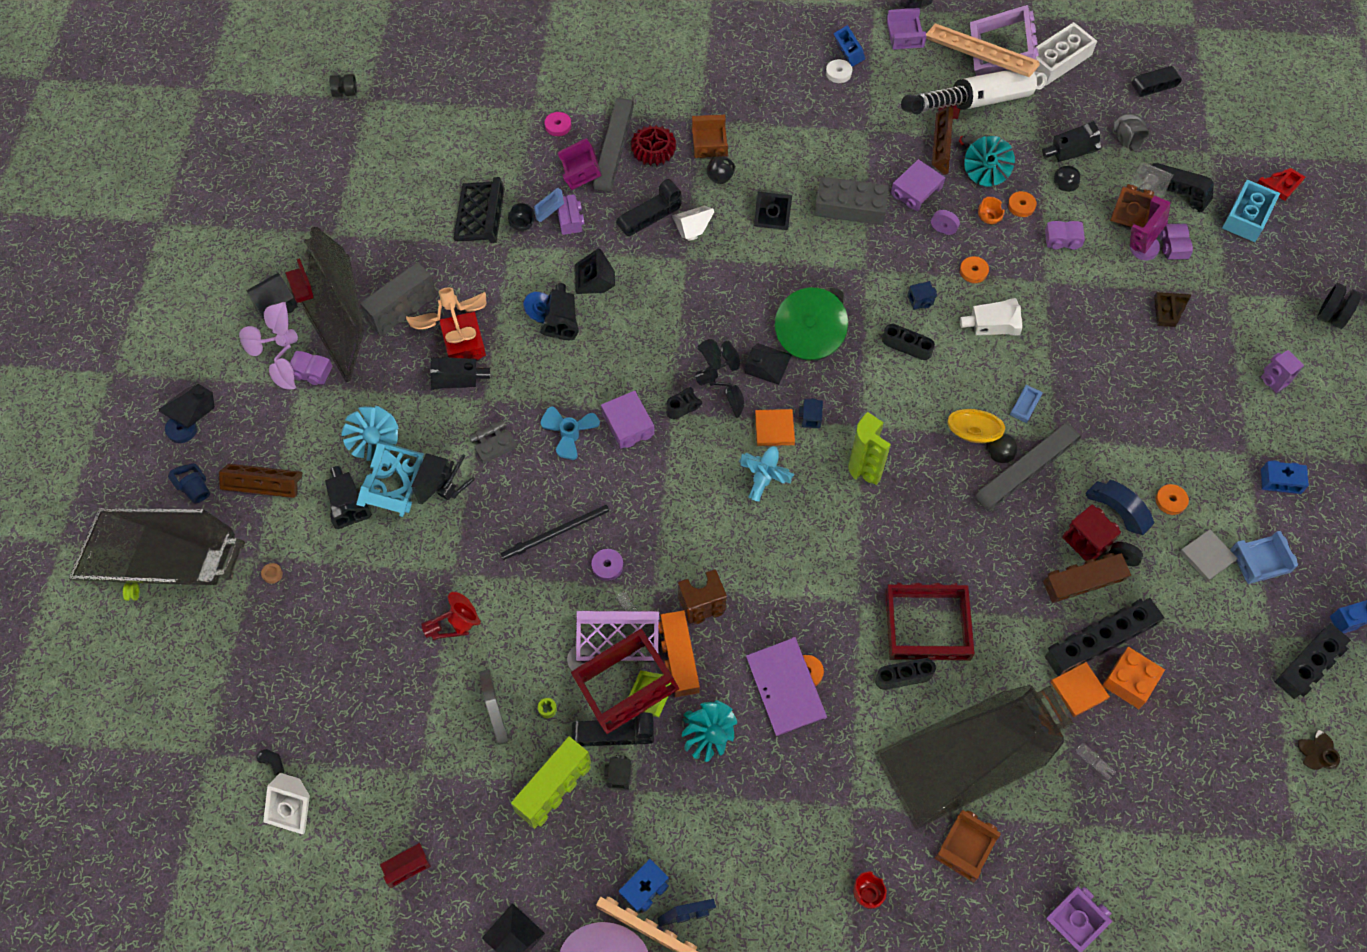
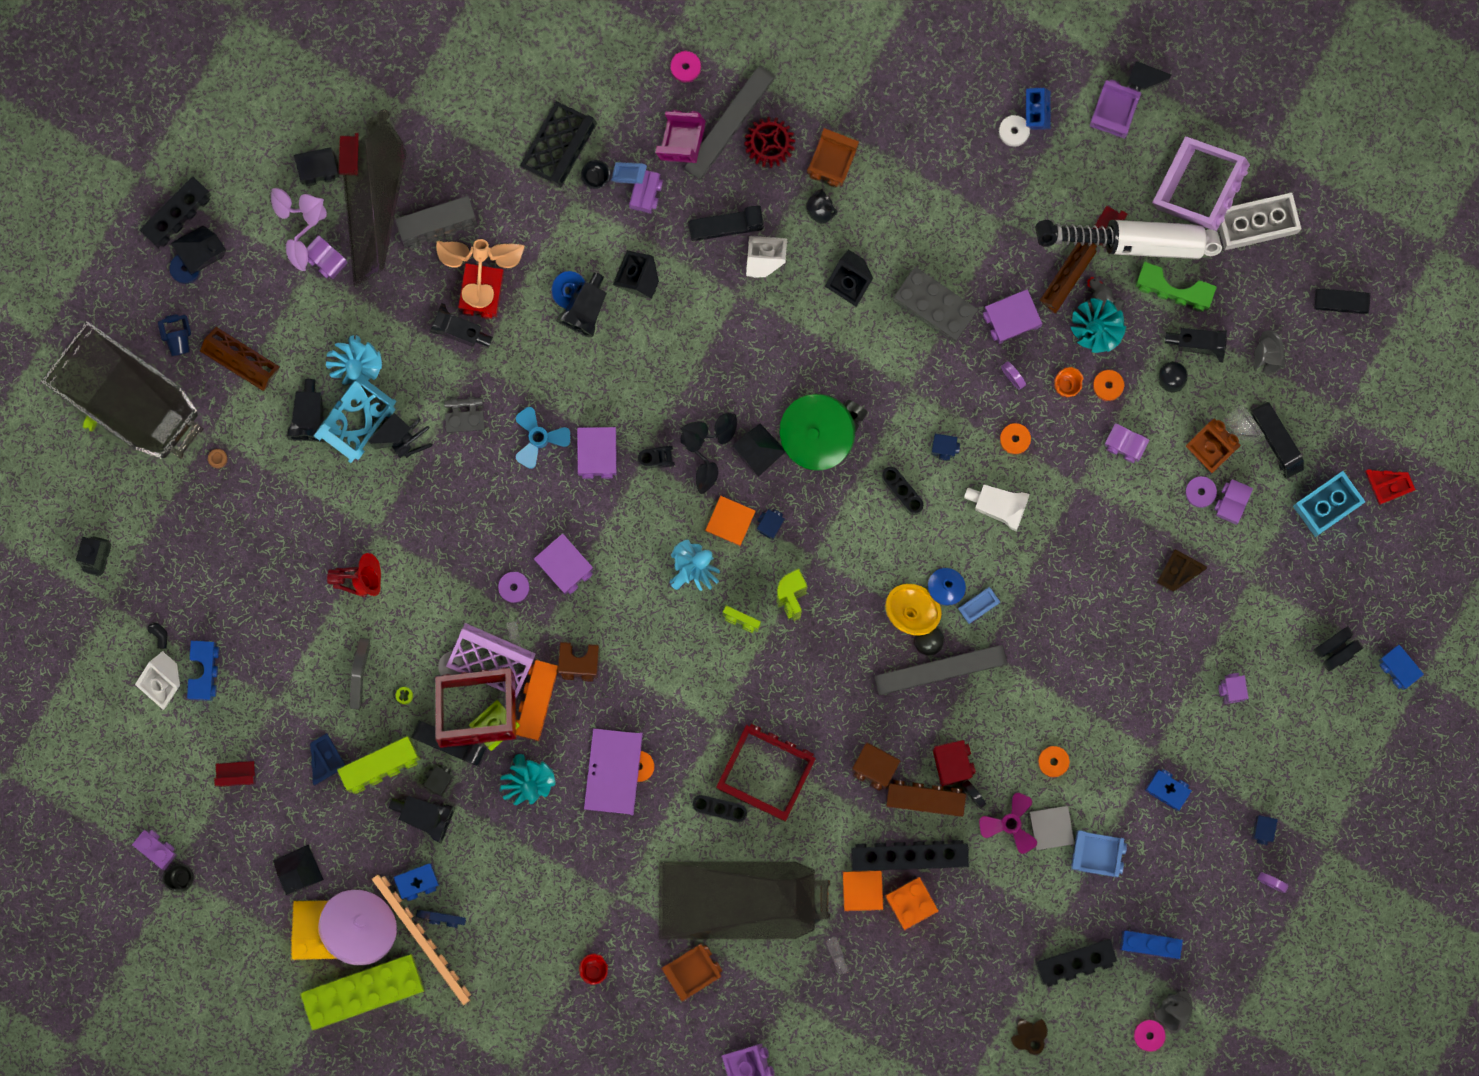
camera: 25 degrees right, 20 degrees up
(154, 386) = (176, 202): none -> black brick
(171, 709) = (93, 555): none -> black piece
(336, 791) = (203, 687): none -> blue arch
(493, 806) = (324, 759): none -> dark blue wing
(521, 548) = (444, 536): black bar -> none
(621, 814) = (424, 816): none -> black piece
(645, 522) = (564, 564): none -> medium lavender panel
(832, 496) = (733, 616): none -> lime plate
(983, 50) = (1168, 185): light nougat plate -> none
(990, 400) = (943, 594): none -> blue dish
(1007, 120) = (1152, 280): none -> bright green arch
(1026, 568) = (875, 766): none -> reddish brown piece
(1125, 502) = (999, 747): dark blue arch -> none
(1143, 238) = (1209, 482): magenta panel -> none
(1170, 547) = (991, 826): none -> magenta piece

